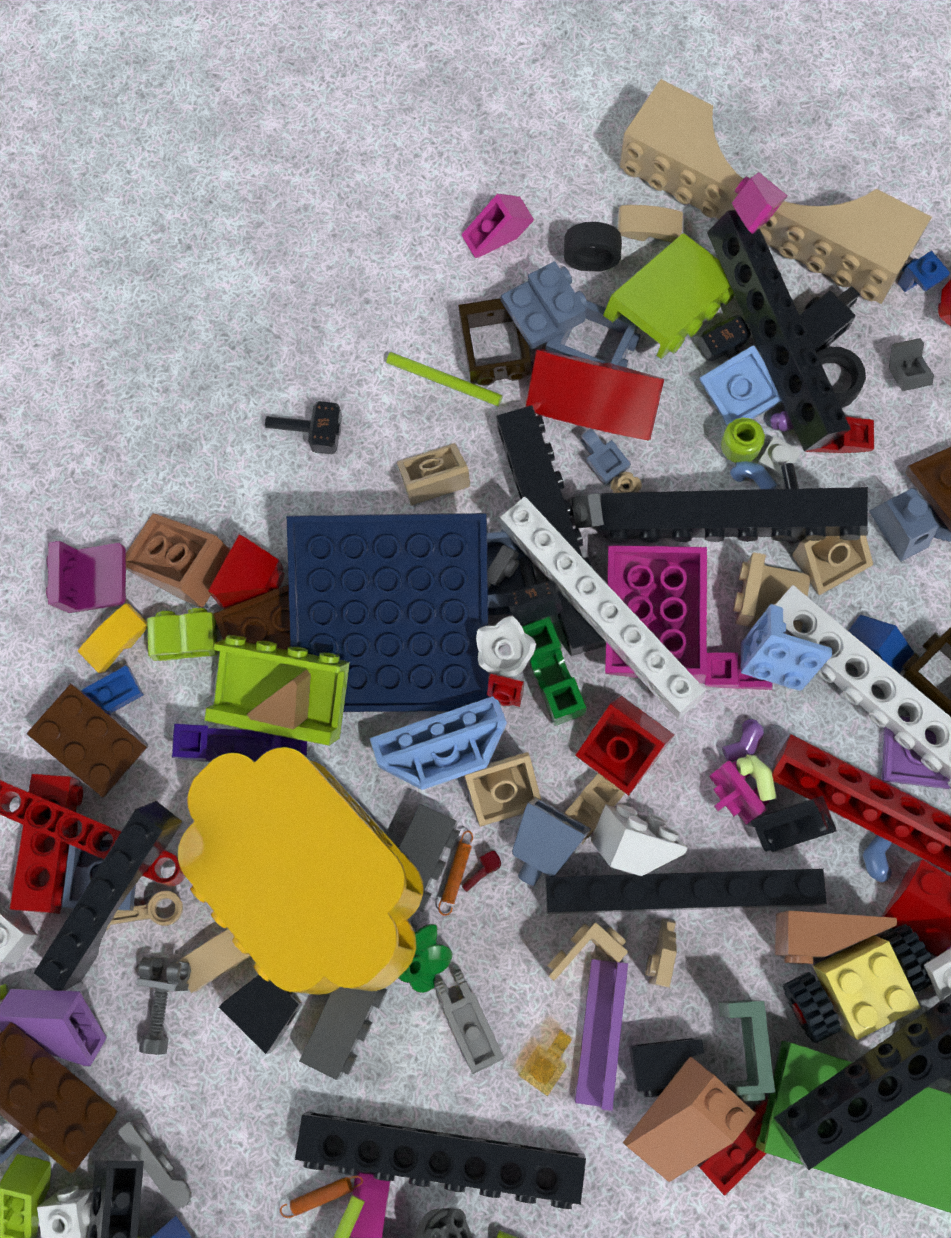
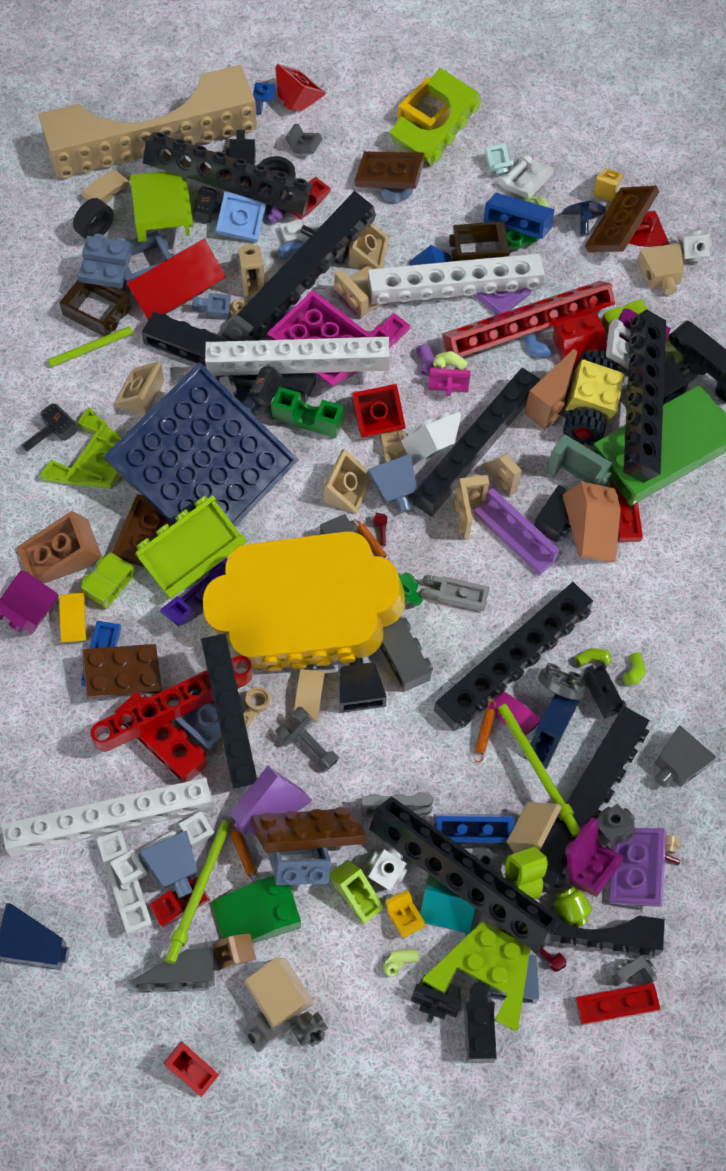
camera: 60 degrees left, 10 degrees down
(246, 574) = (108, 516): red slope -> none
(287, 706) = (203, 545): medium nougat slope -> none
(321, 497) = (90, 467): none -> lime wing
(442, 745) = (299, 487): light blue wedge -> none
(497, 224) = (30, 255): dark pink slope -> none
(505, 690) = (297, 437): red slope -> none
(506, 632) = (272, 409): white piece -> none
(544, 1065) = (509, 573): clear yellow plate -> none
(682, 456) = (251, 261): none -> tan torso
(742, 440) = (269, 237): lime head -> none
(757, 201) = (156, 121): dark pink slope -> none
(778, 656) = (398, 302): light blue bracket -> none
(794, 824) = (489, 365): black hinge -> none
(906, 523) = (386, 201): sand blue torso -> none

